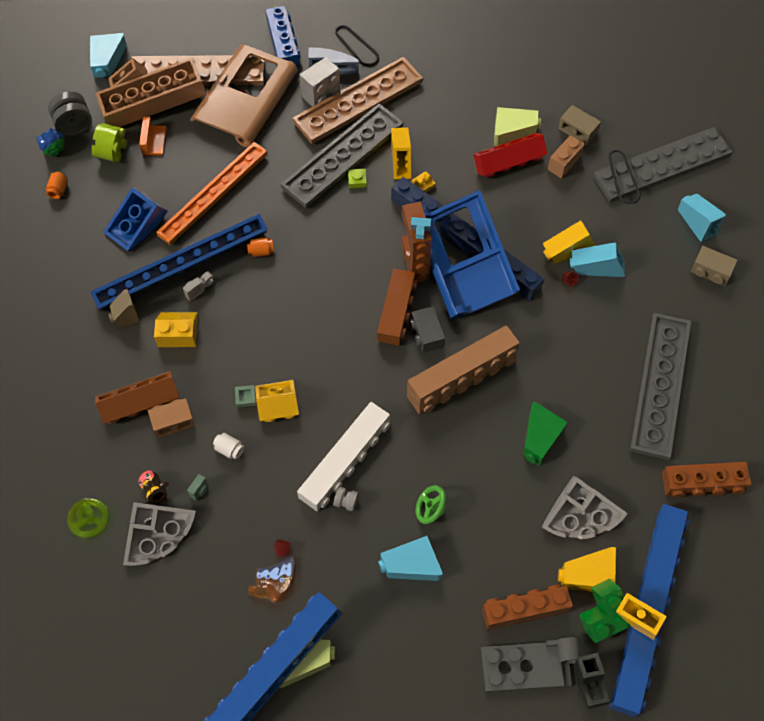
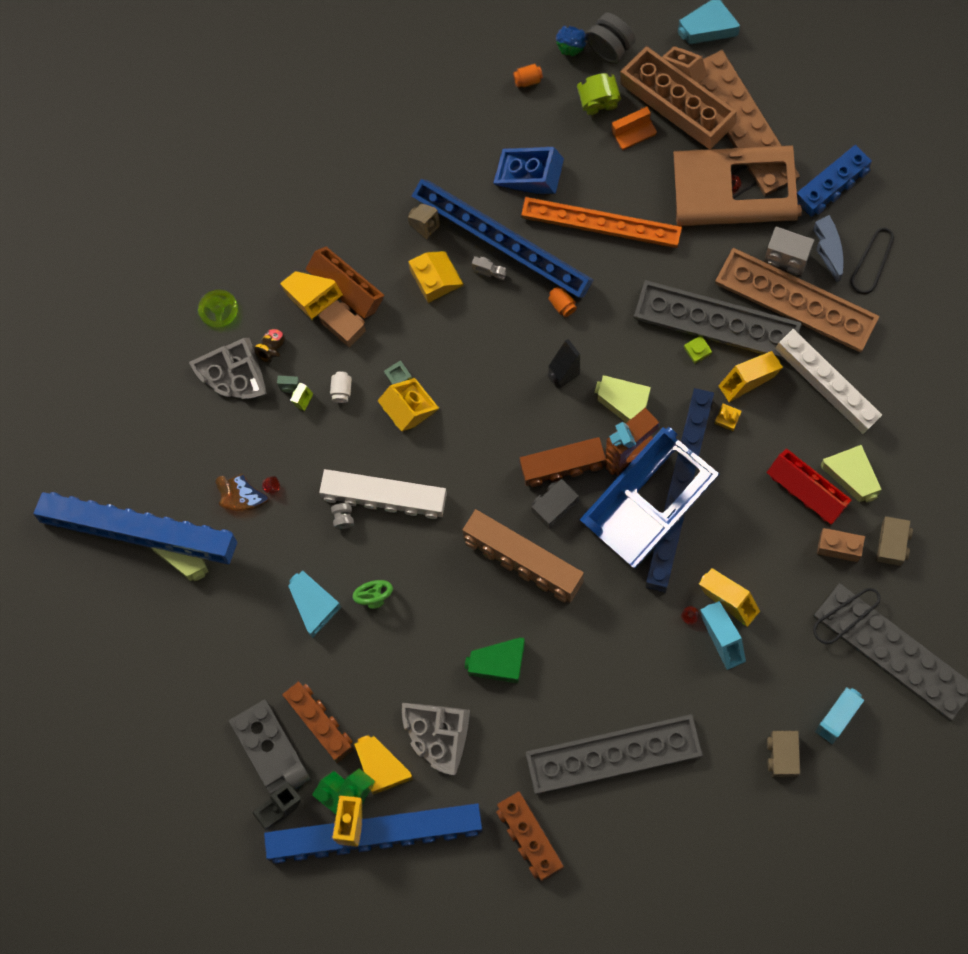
camera: 70 degrees right, 10 degrees up
(128, 427) = (311, 292): none -> yellow slope
(216, 483) = (301, 396): none -> lime plate
(318, 262) = (564, 365): none -> black slope
(369, 242) = (622, 397): none -> yellowish green slope
(435, 105) = (828, 381): none -> white brick

